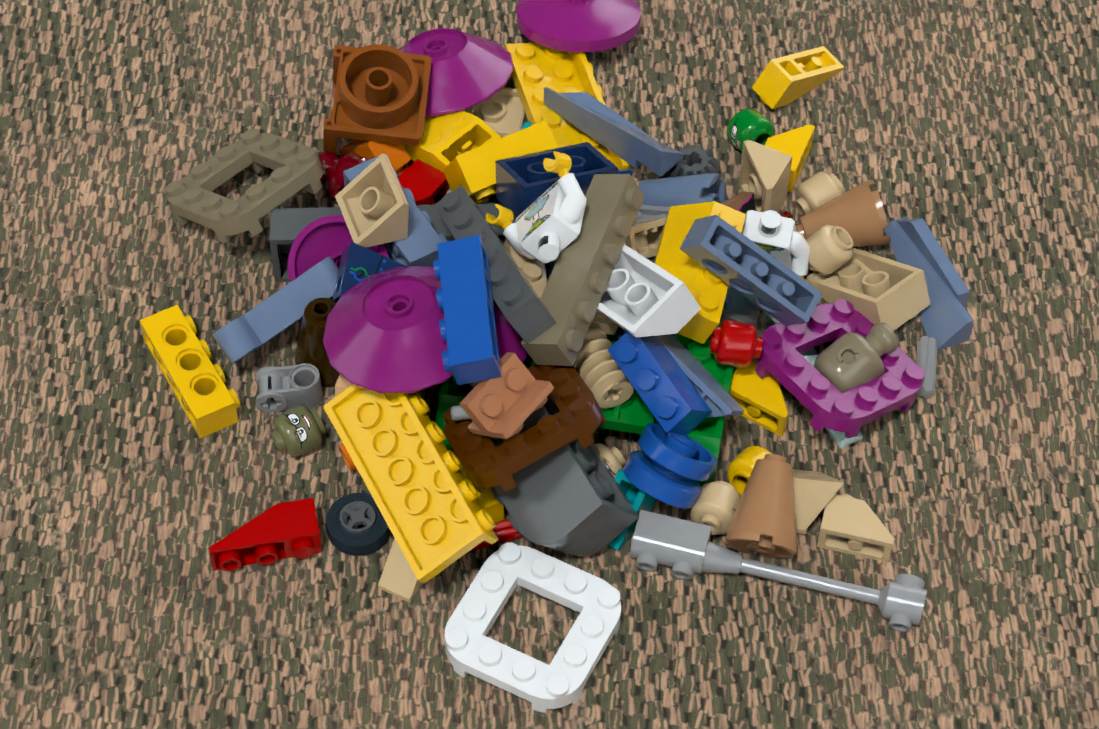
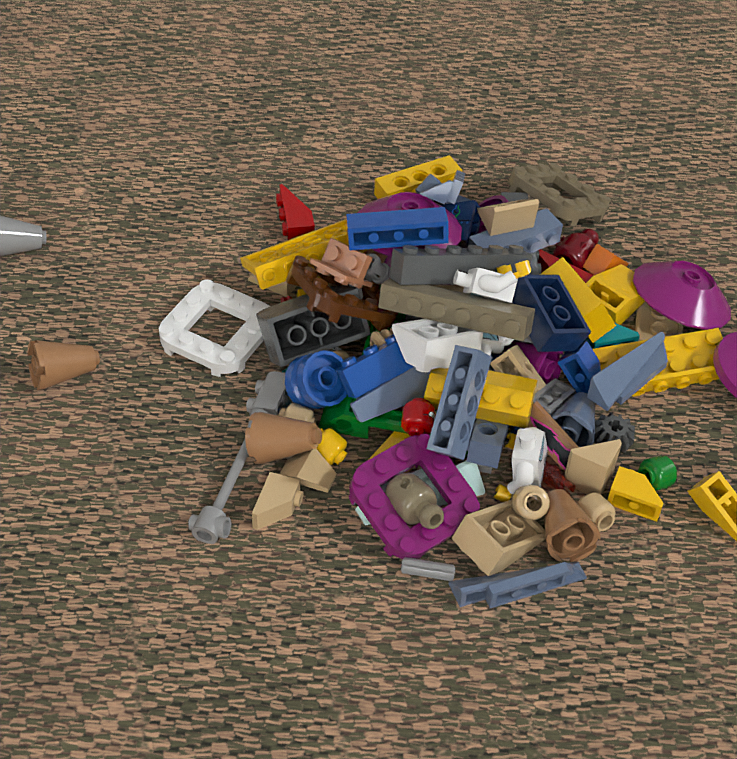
camera: 90 degrees right, 5 degrees down
(312, 278) = (446, 191): none -> sand blue wedge
(377, 96) = (635, 240): dark orange piece -> none

